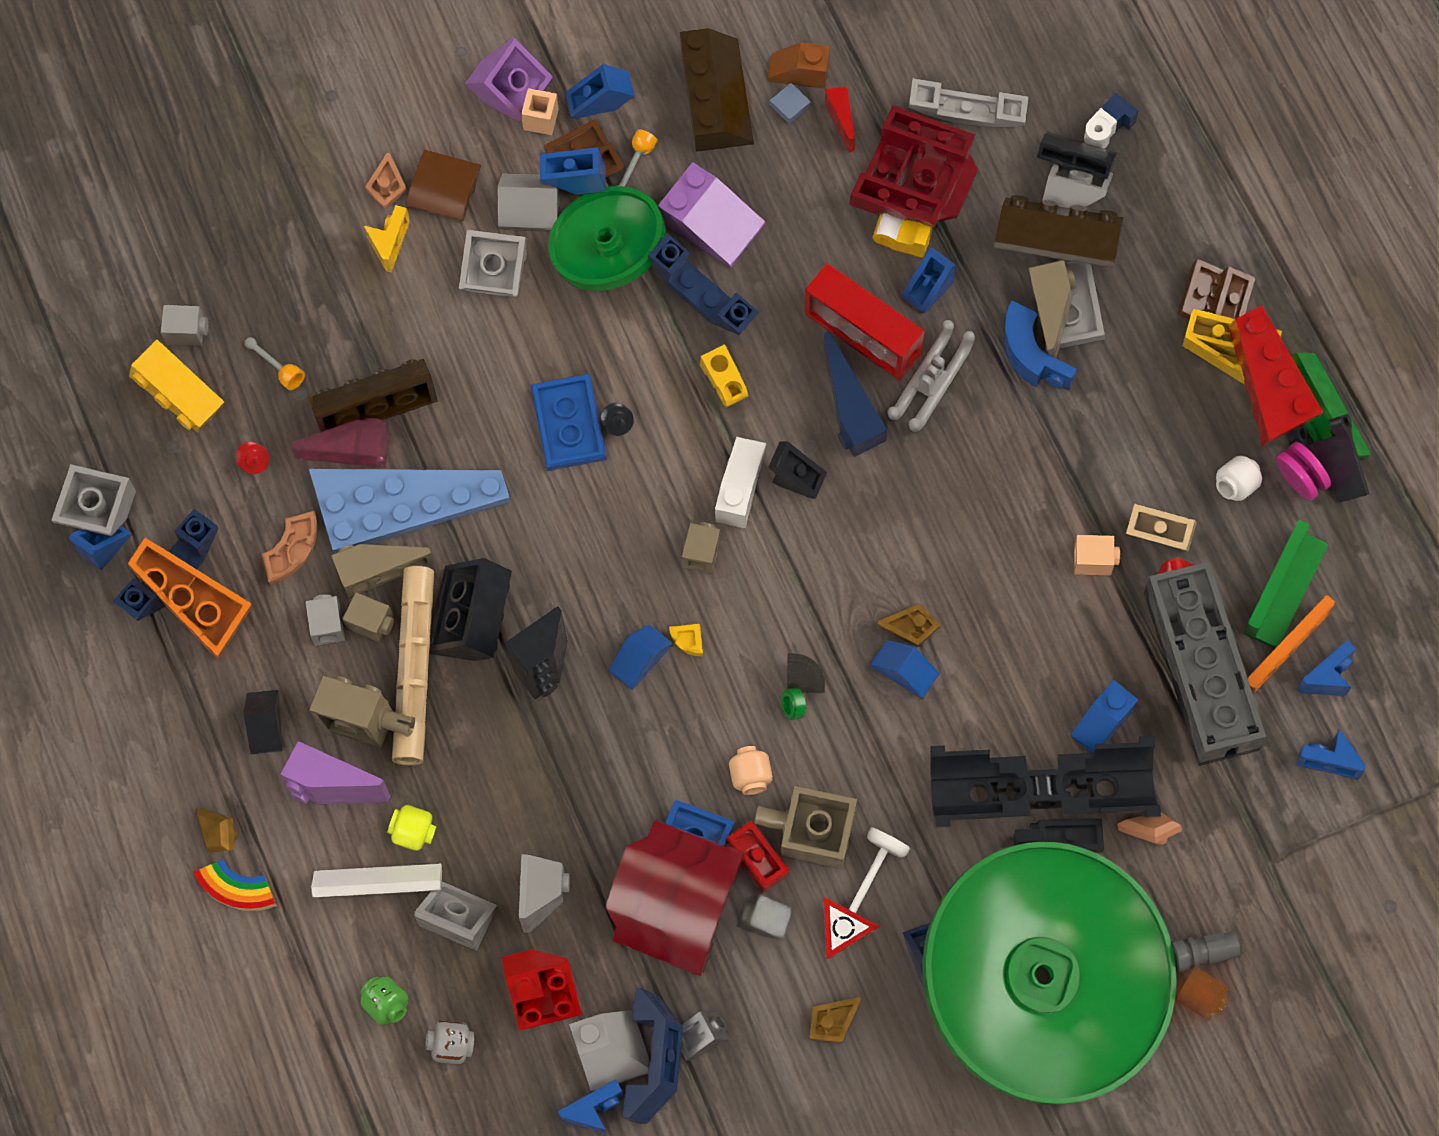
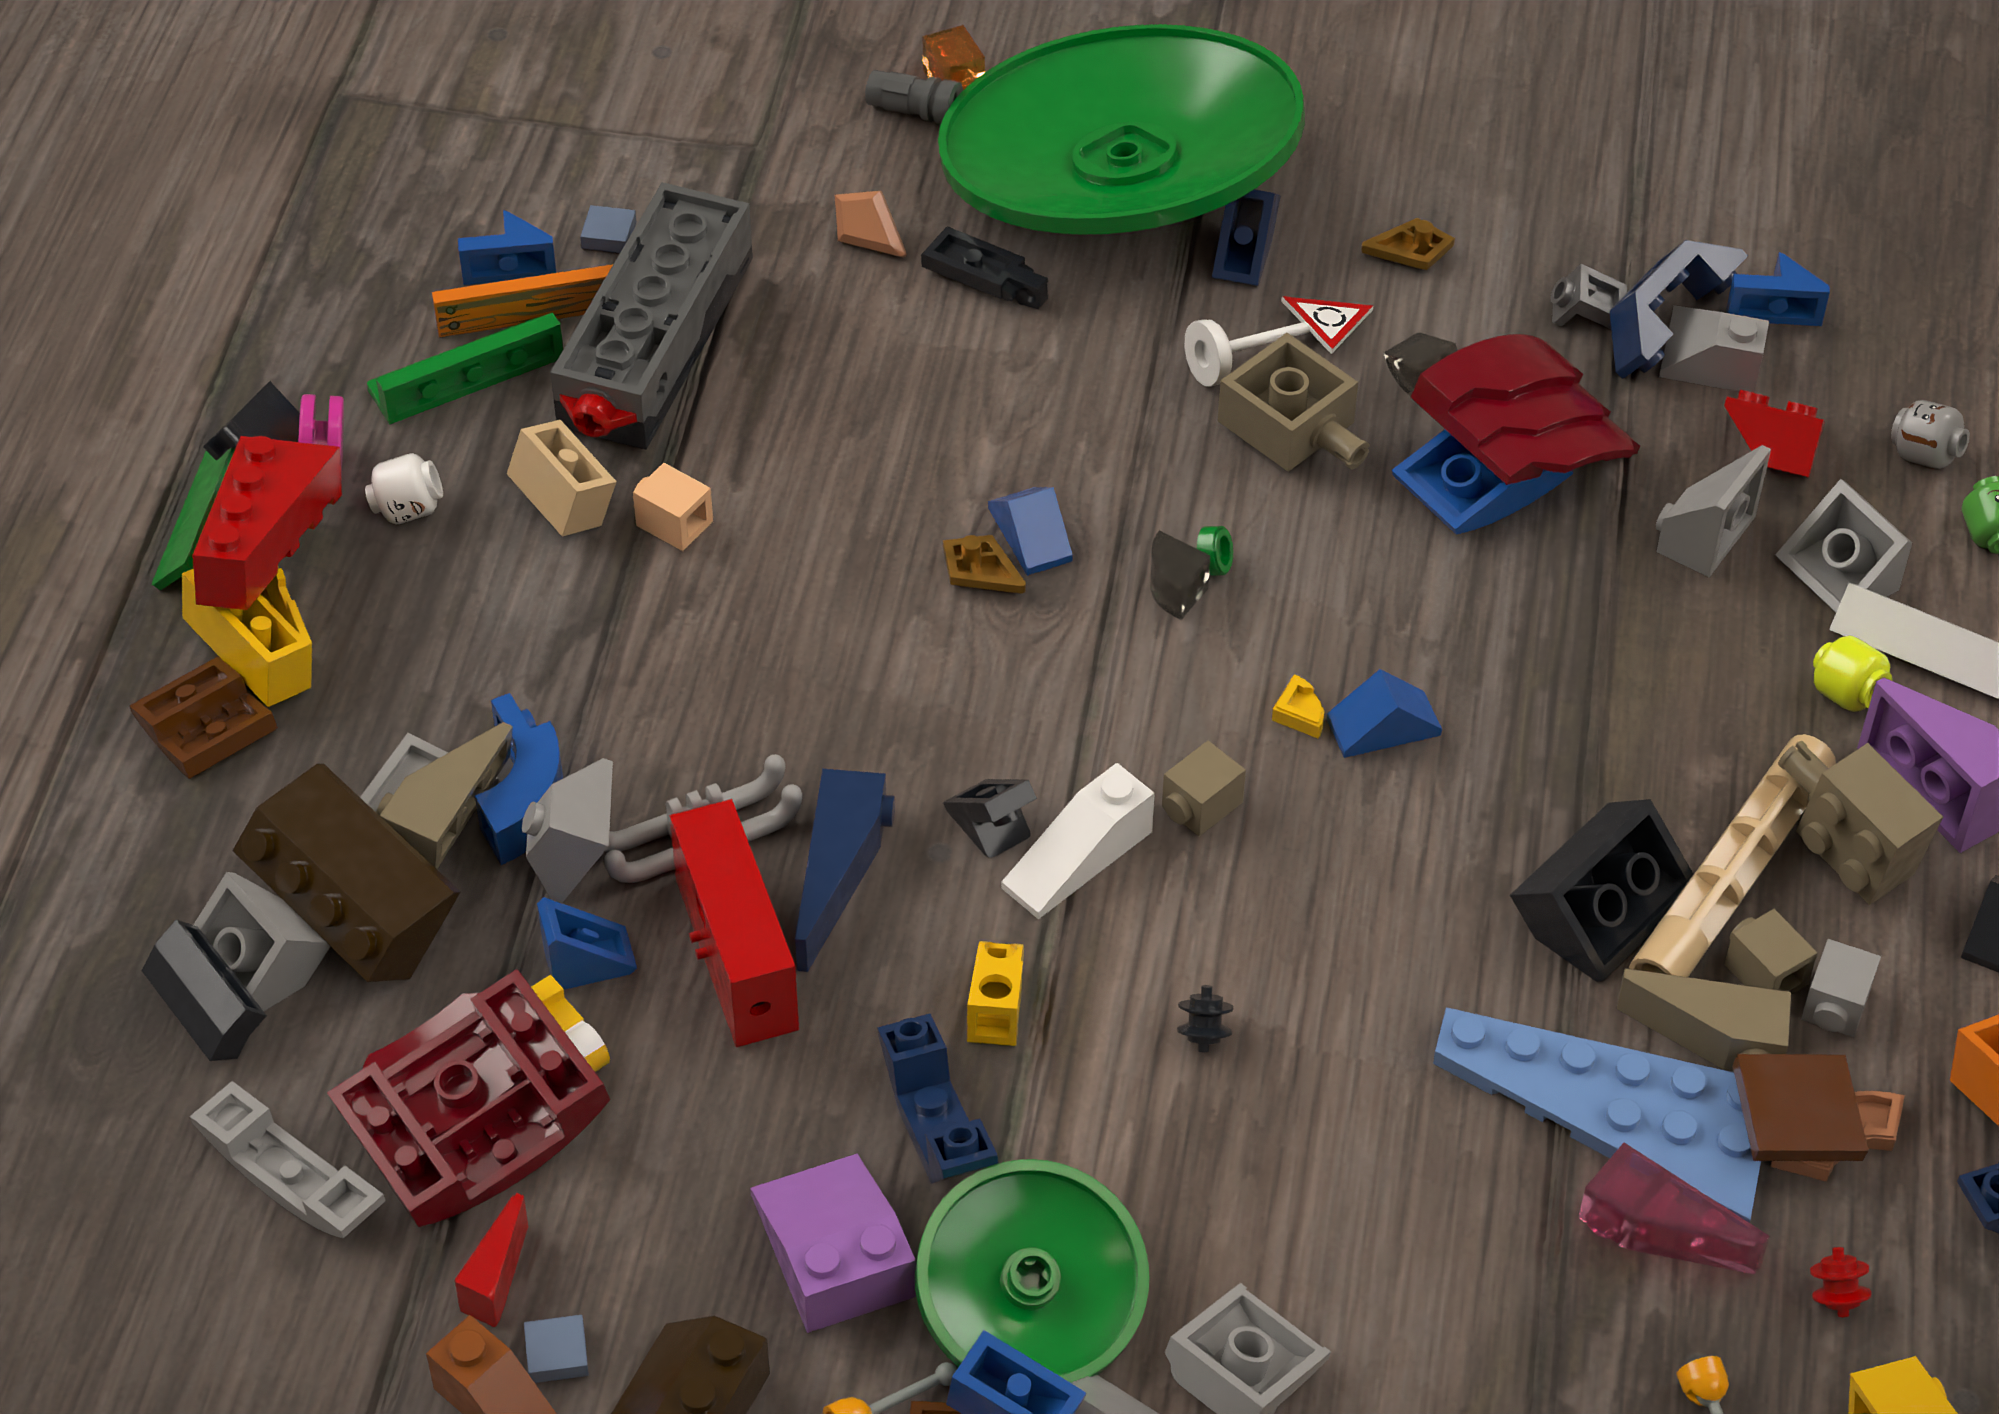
camera: 150 degrees left, 20 degrees down
(311, 532) = (1799, 1107): none -> reddish brown tile
(377, 396) = (1587, 1245): dark brown slope -> none
(540, 653) = (1541, 736): black slope -> none
(568, 422) = (1280, 1072): blue tile -> none
(750, 771) = (1331, 508): light nougat head -> none
(760, 858) = (1388, 416): red slope -> none
(978, 316) = (569, 828): none -> light grey slope
(1105, 716) = (819, 344): blue slope -> none
(1108, 120) = (111, 1017): leg -> none
(1122, 764) = (1007, 327): black piece -> none
(1294, 734) = (607, 228): none -> sand blue tile
(1340, 761) = (591, 175): blue slope -> none

